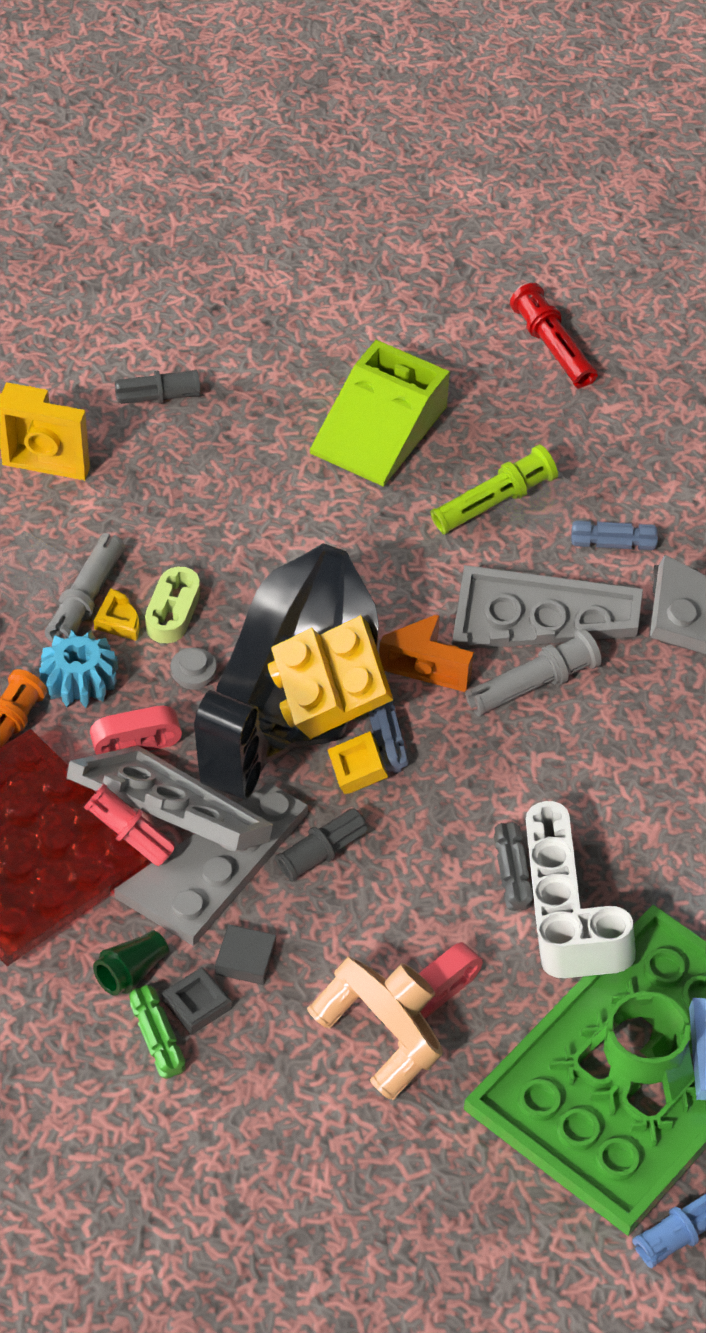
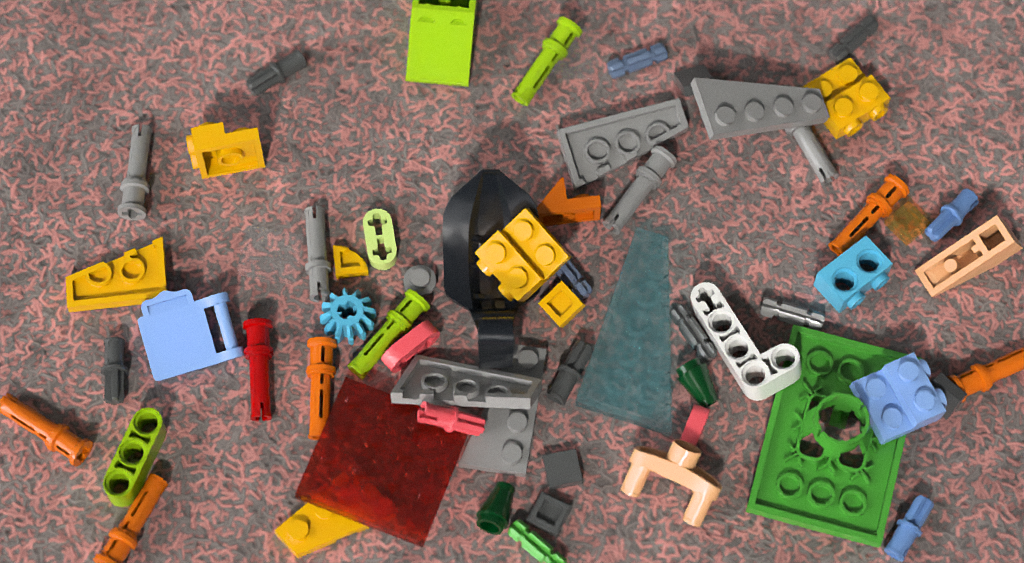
camera: 25 degrees left, 15 degrees up
(157, 691) = (397, 323): none -> lime pin
(415, 857) = (632, 354): none -> clear light blue wing
(485, 921) = (697, 381): none -> dark green cone
(662, 895) = (792, 313): none -> light grey axle

